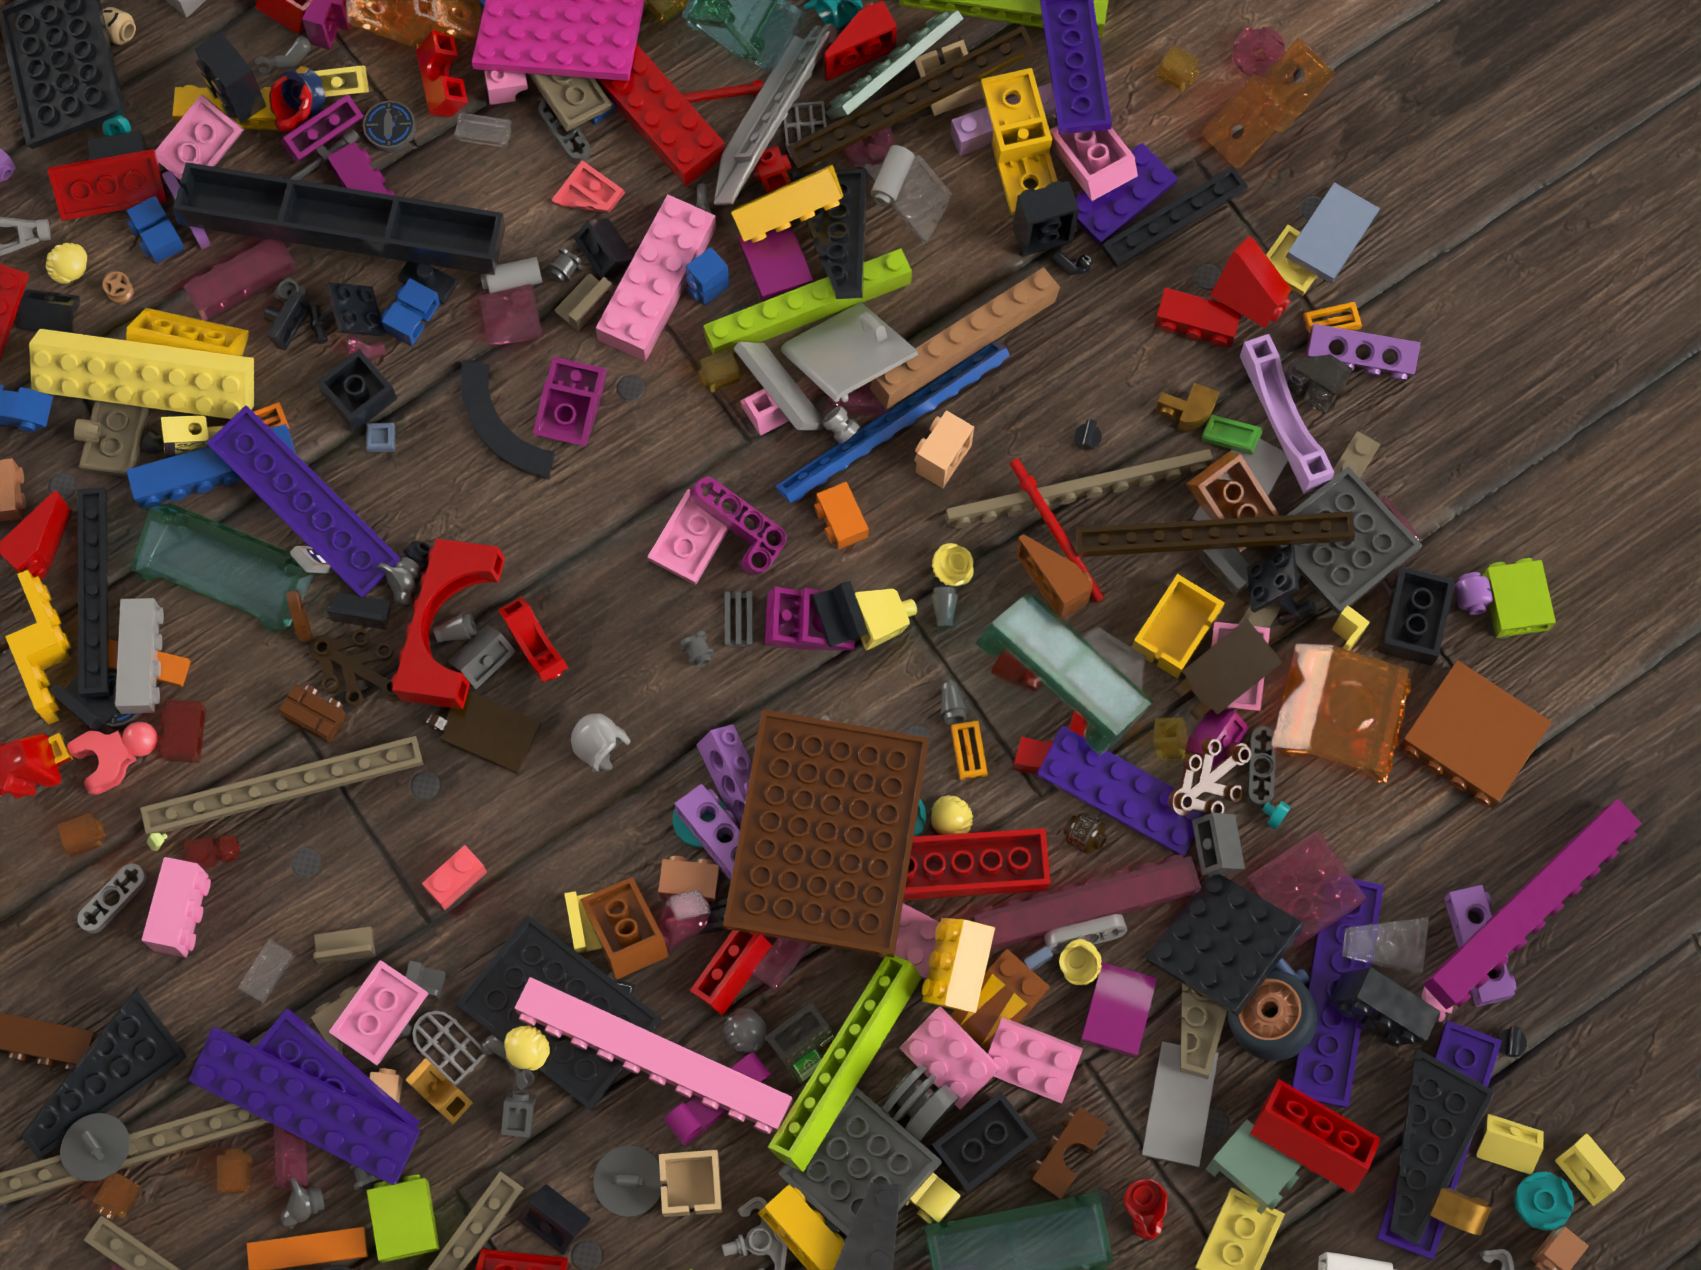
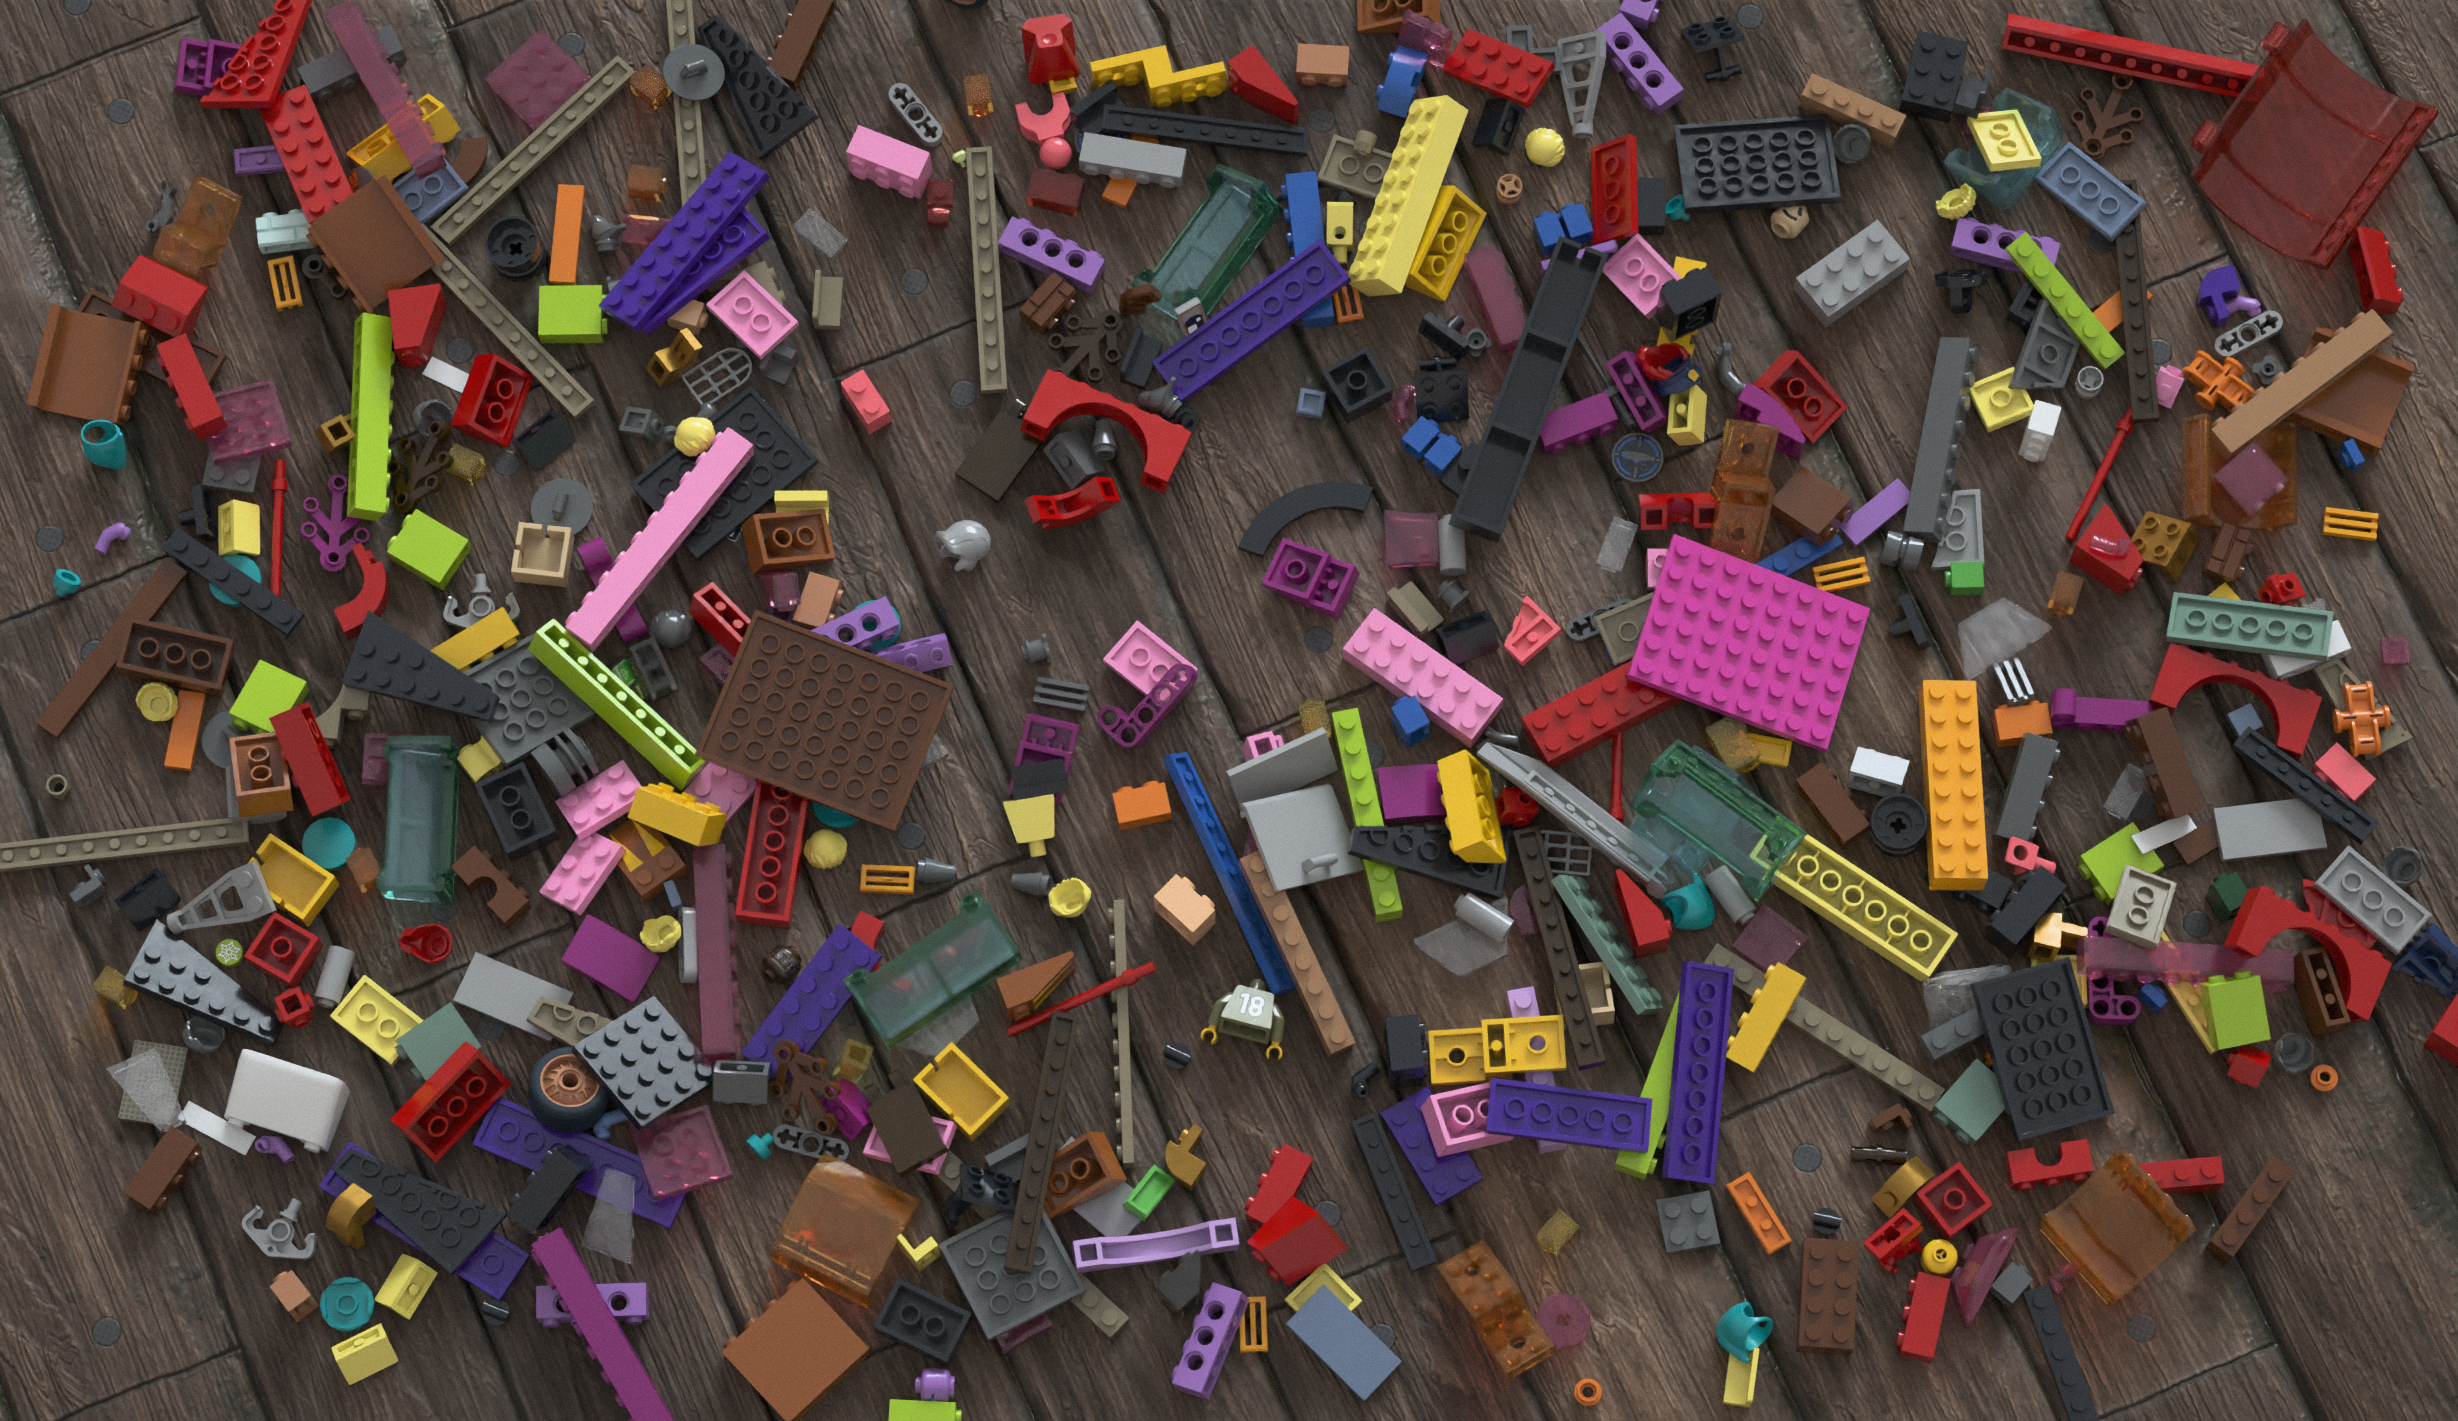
camera: 105 degrees right, 0 degrees up
(250, 763) = (1084, 277): none -> medium lavender brick
(840, 425) = (1231, 822): light grey wheel -> none
(1035, 374) = (1248, 1015): none -> olive torso
(1319, 15) = (1591, 1384): none -> orange plate

